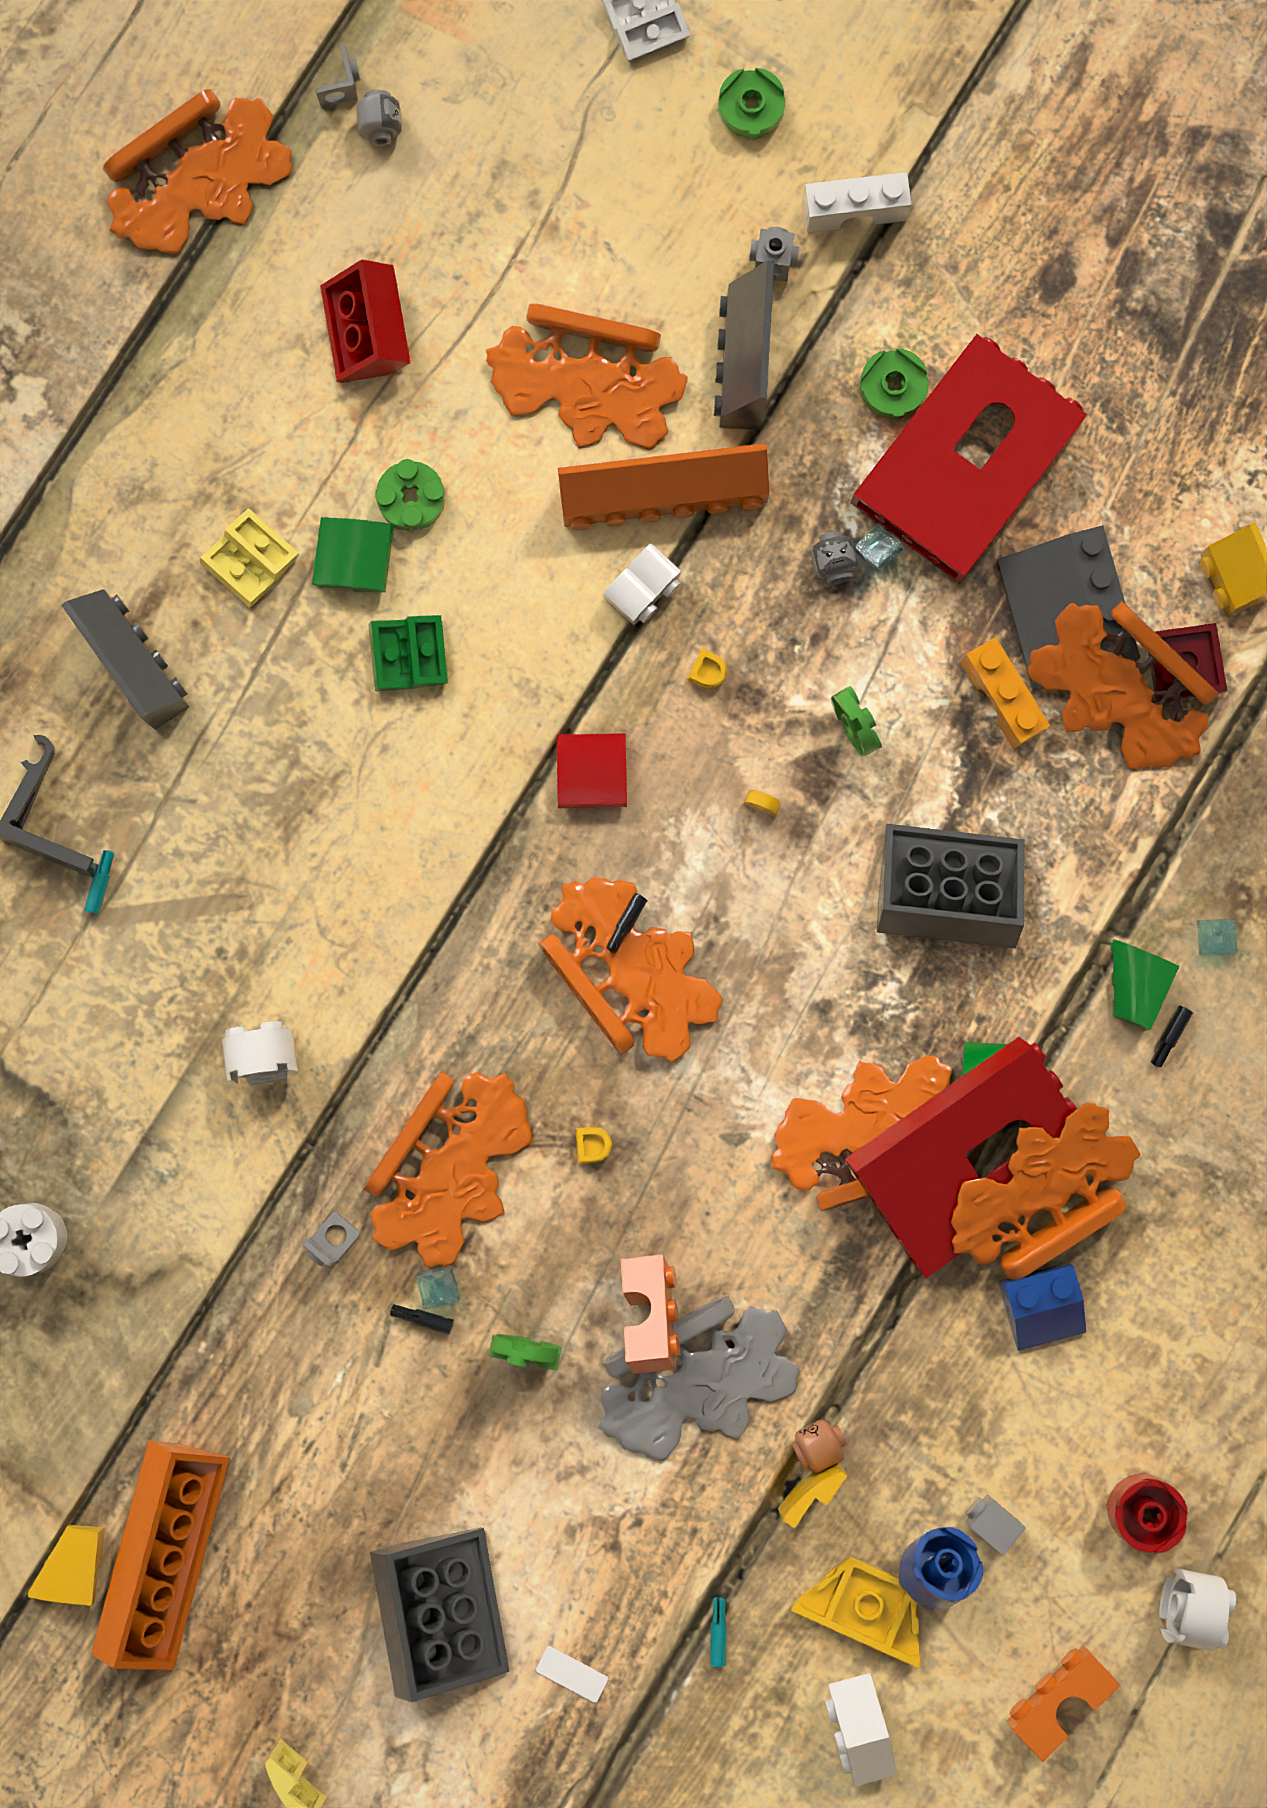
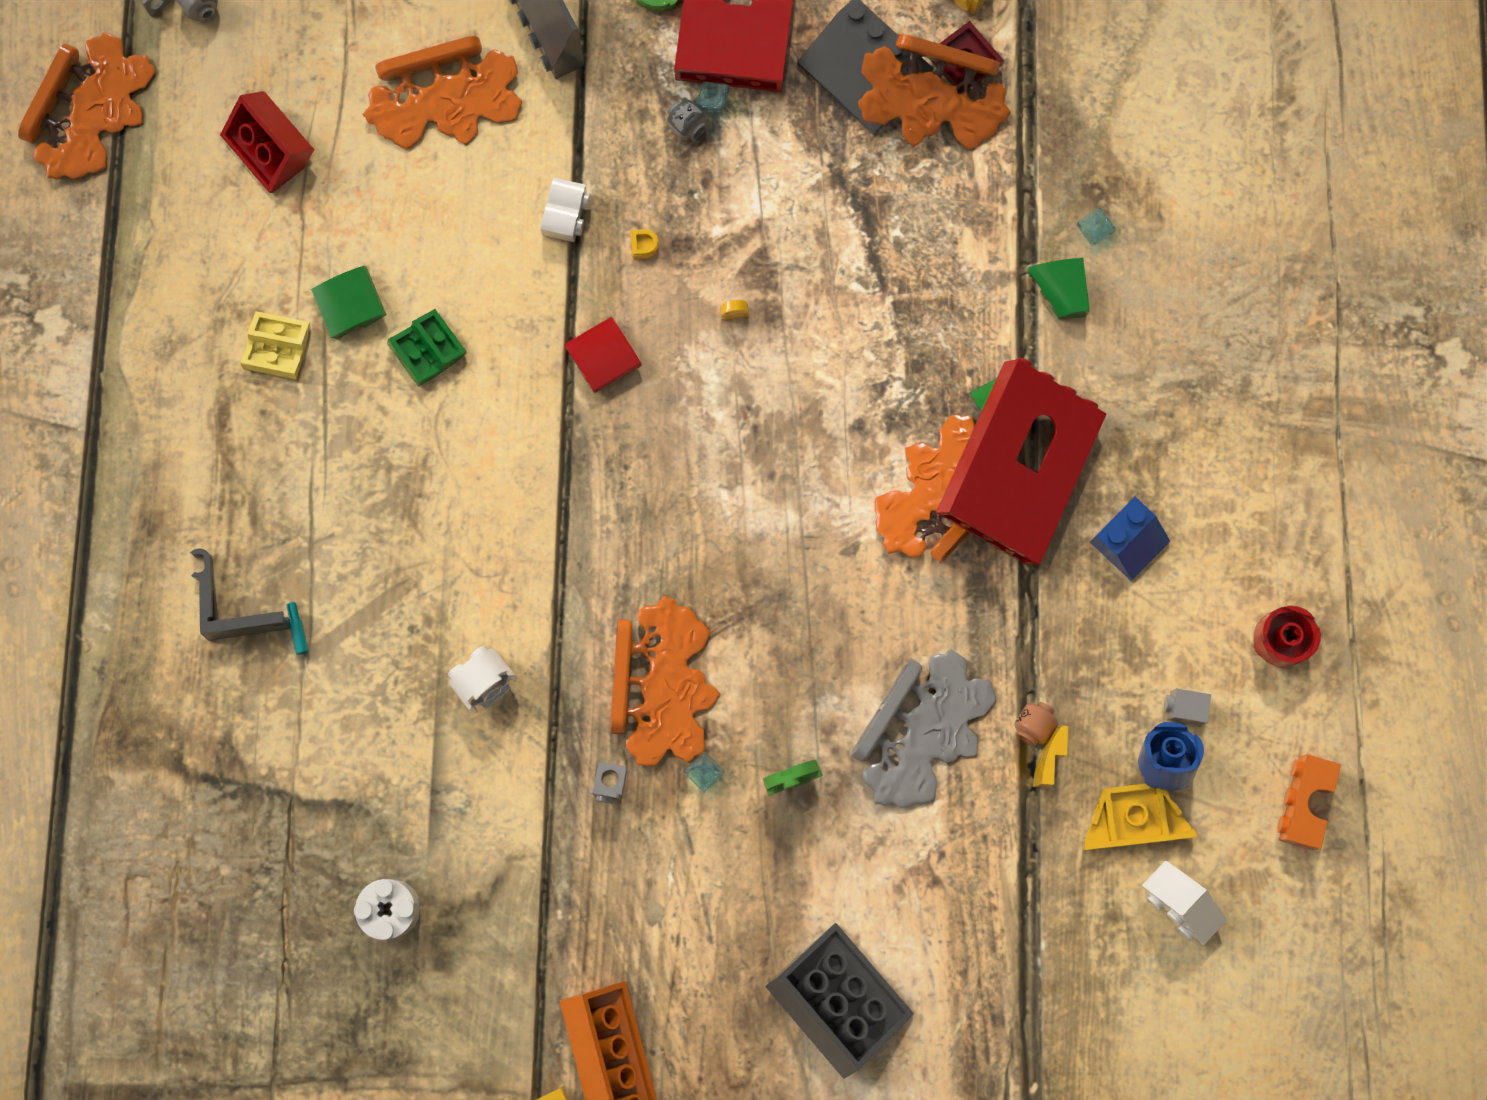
camera: 30 degrees left, 5 degrees down
(126, 656) = (227, 459): dark grey slope -> none
(405, 476) = (357, 227): bright green plate -> none
(426, 1319) = (706, 800): black piece -> none
(572, 1674) = (959, 989): white sticker -> none
(592, 1144) = (754, 610): yellow tile -> none
(626, 921) = (688, 442): black piece -> none
(644, 970) = (716, 468): orange plant -> none
(652, 1343) = (877, 716): arch -> none
(664, 486) = (540, 134): orange slope -> none
(718, 1634) = (1044, 898): teal pin -> none
(857, 721) = (766, 216): bright green plate -> none
(951, 886) = (897, 293): dark grey slope -> none
(1015, 706) = (873, 151): light orange arch -> none
(1044, 1178) = (1080, 448): orange plant -> none
(1171, 1035) = (1105, 305): black pin -> none
(1196, 1610) = (1360, 682): white brick -> none

